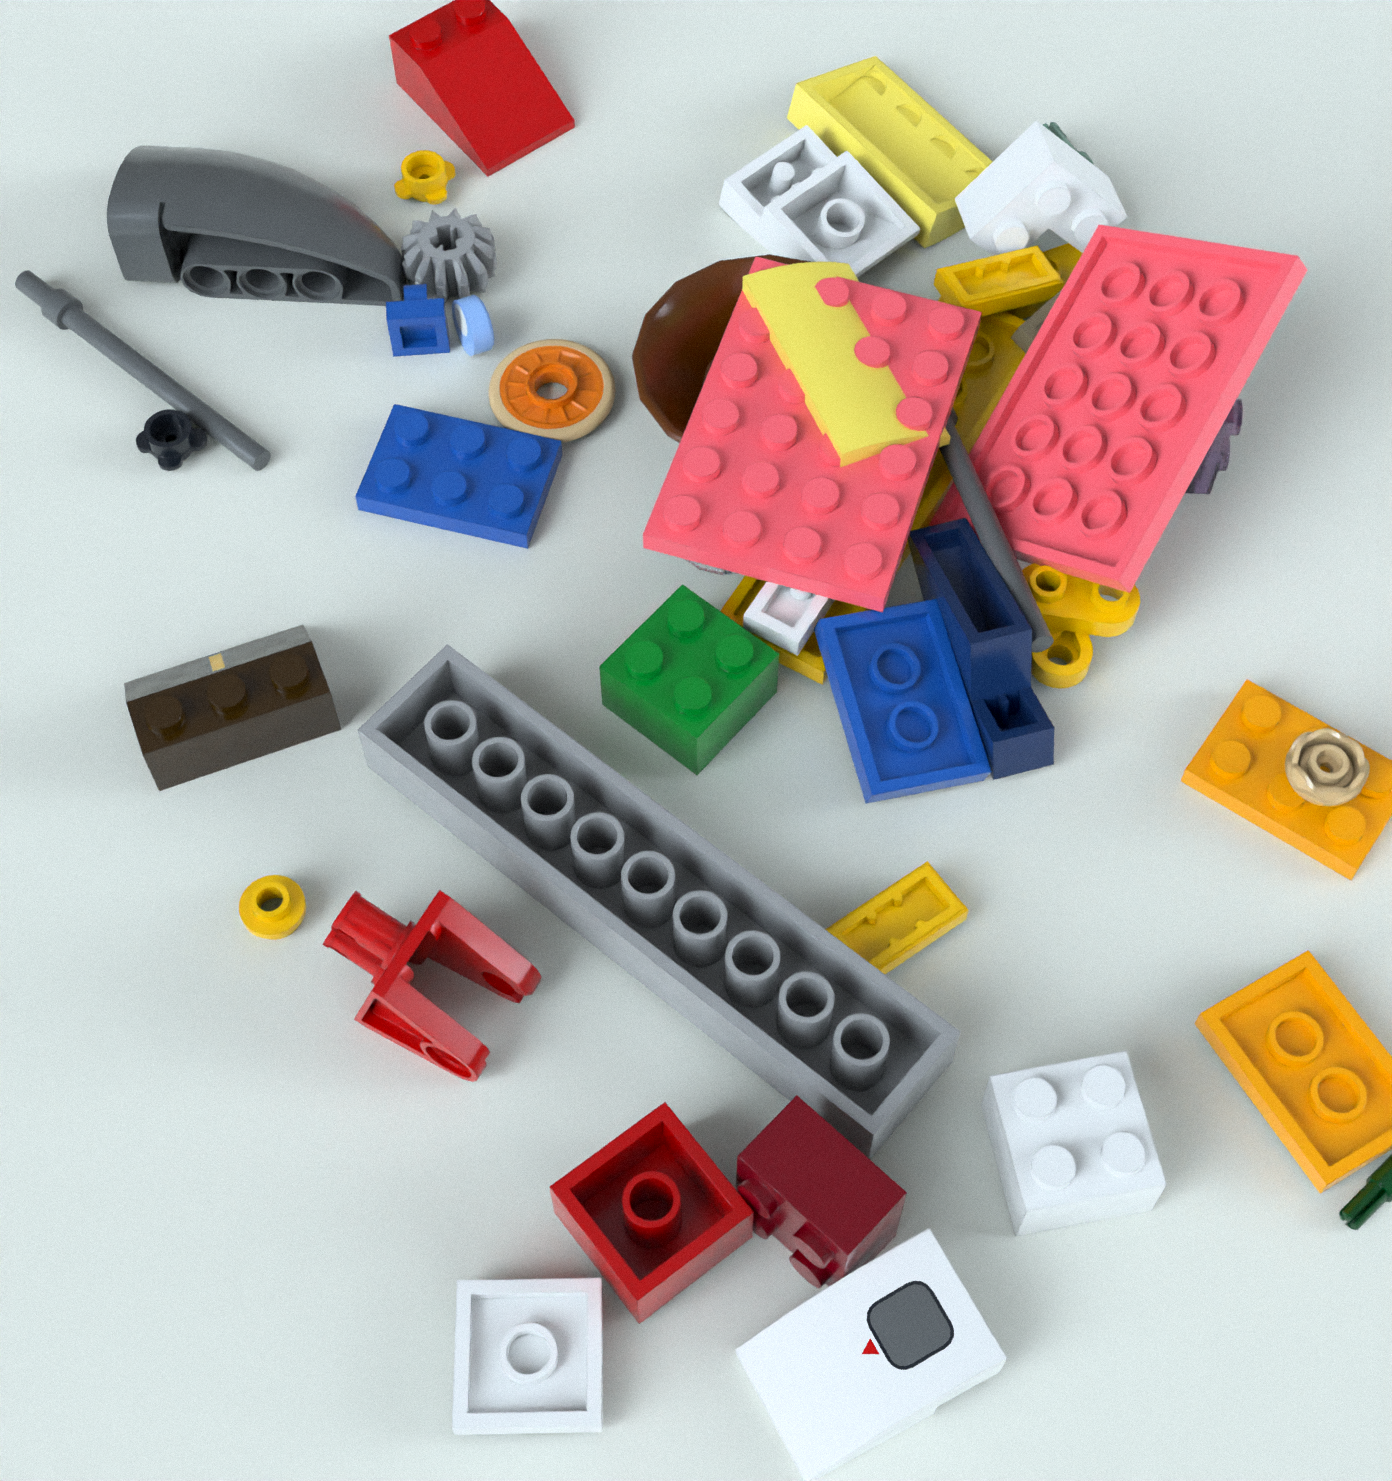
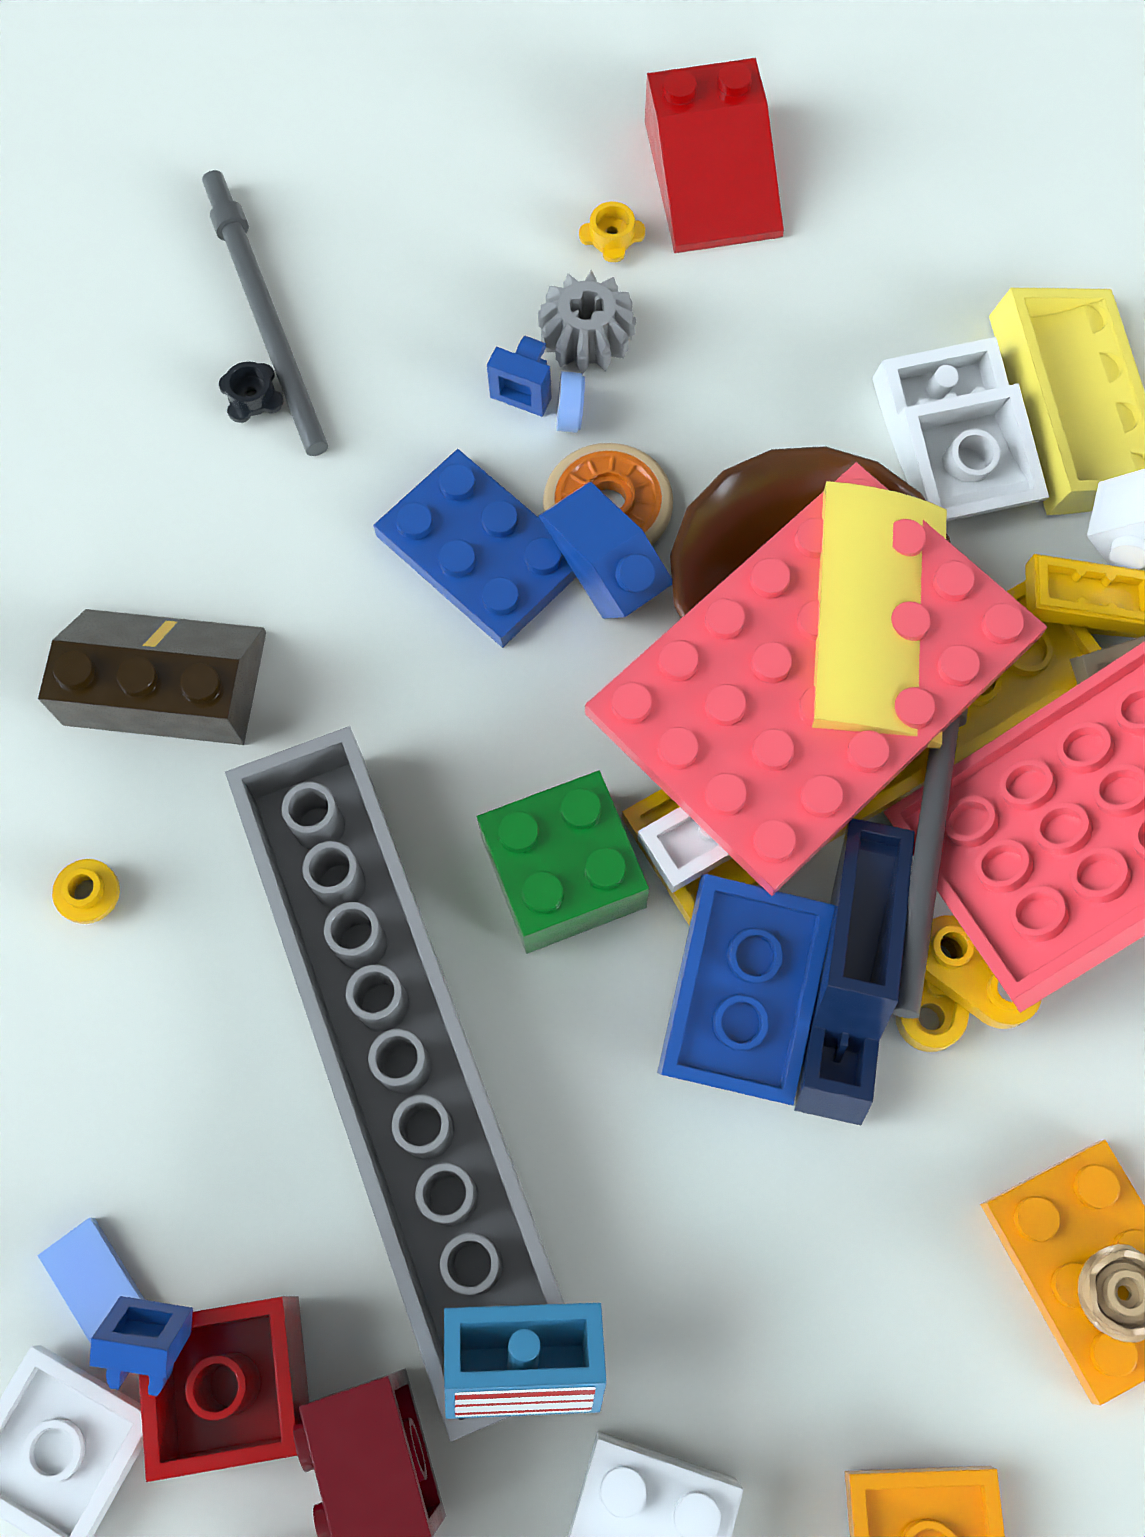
camera: 30 degrees right, 10 degrees up
(246, 230) = (418, 210): dark grey panel -> none
(446, 936) = (139, 1000): red piece -> none
(485, 1220) = (88, 1274): none -> light blue piece
(571, 1178) = (140, 1339): none -> blue tile
(582, 422) = (606, 552): none -> blue slope
(900, 1020) = (523, 1360): none -> dark azure brick
(901, 919) = (614, 1211): yellow plate -> none

